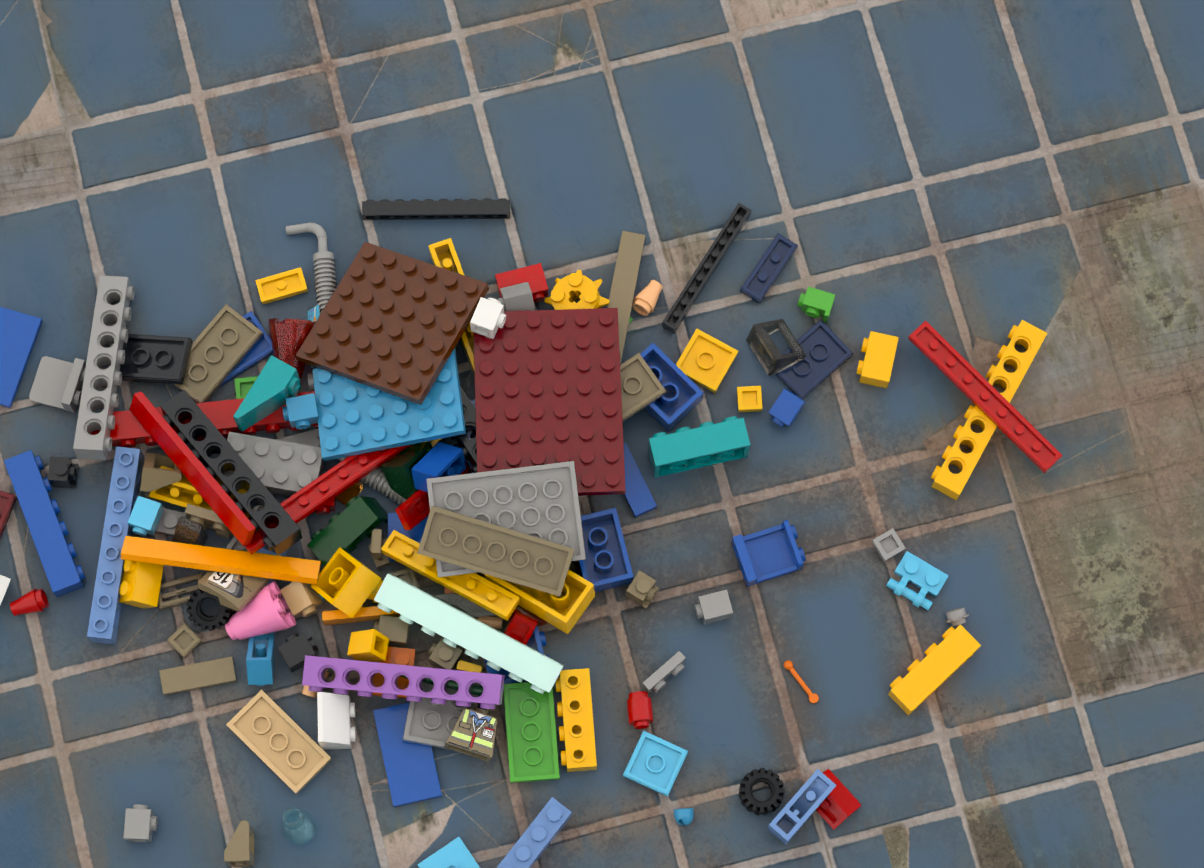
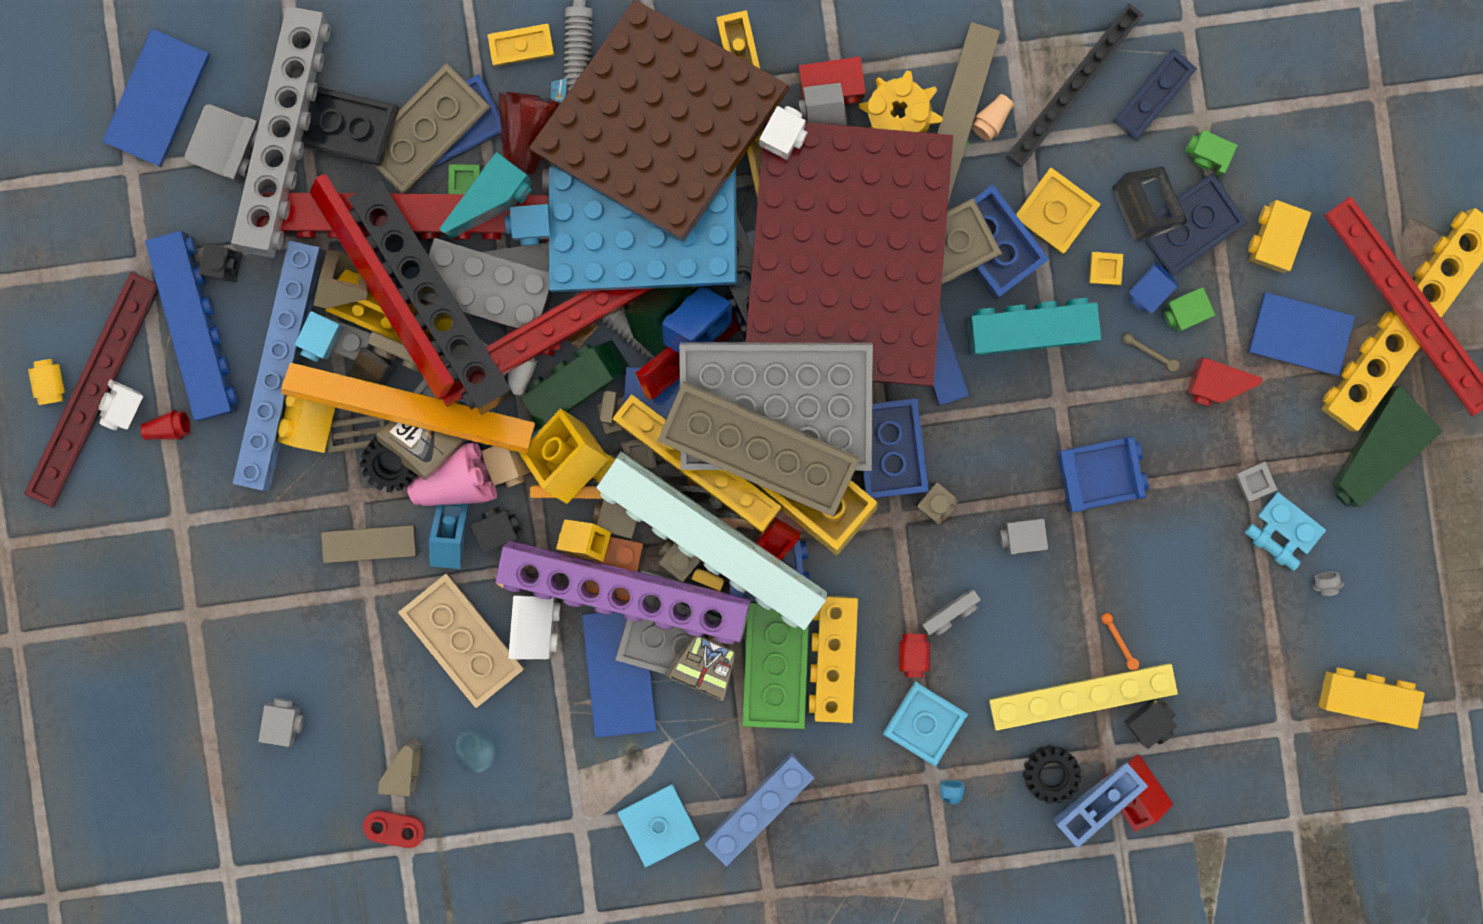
camera: 15 degrees right, 15 degrees up
(184, 640) = (356, 496): dark tan tile -> none
(307, 529) = (521, 377): none -> white cone
(777, 728) = (1083, 696): none -> light yellow plate
(811, 466) = (1172, 365): none -> dark tan hinge
(817, 421) = (1188, 310): none -> bright green brick
(834, 741) = (1152, 723): none -> black brick
(848, 473) = (1218, 382): none -> red slope
(907, 431) = (1301, 334): none -> blue tile
(934, 669) = (1289, 648): yellow brick -> none
(986, 503) = (1385, 447): none -> dark green slope
(1004, 700) = (1371, 698): none -> yellow brick

